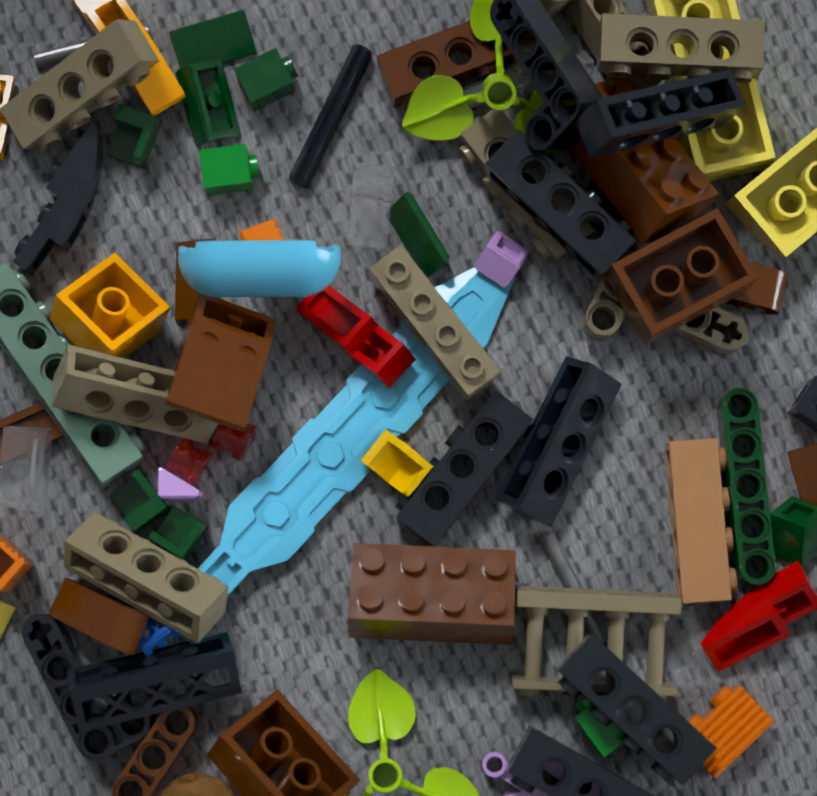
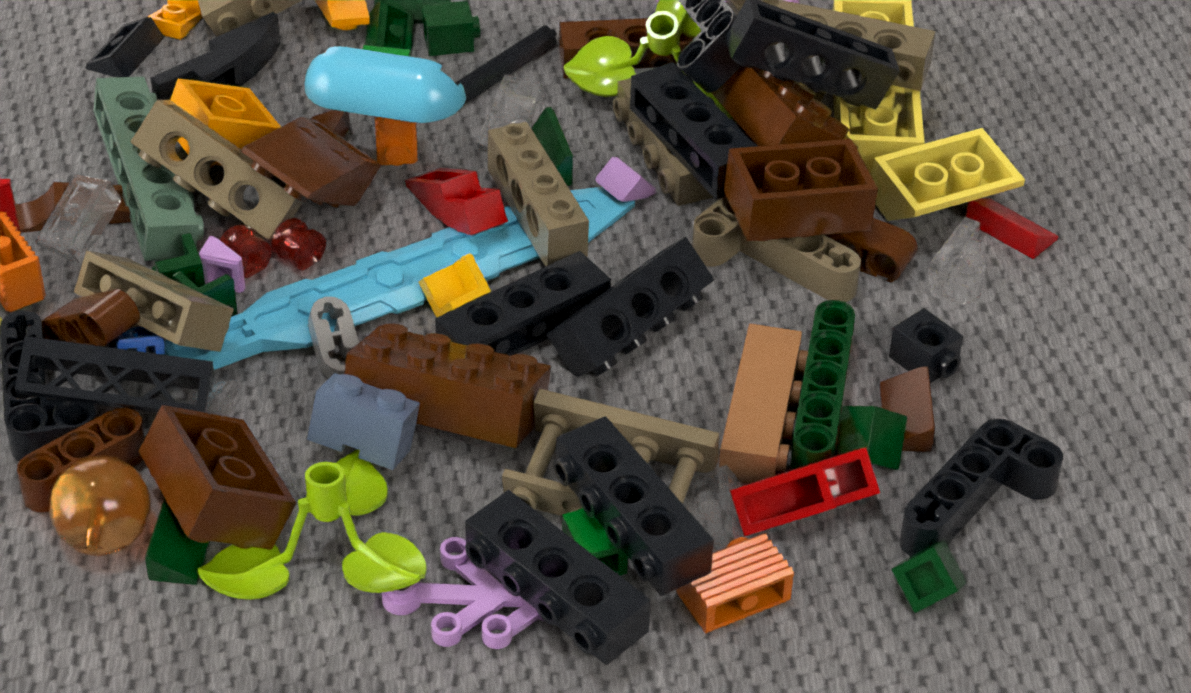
camera: 15 degrees right, 40 degrees down
(133, 136) = (315, 35): dark green panel -> none
(318, 547) = (325, 340): none -> light grey beam
(377, 658) = (364, 418): none -> sand blue brick

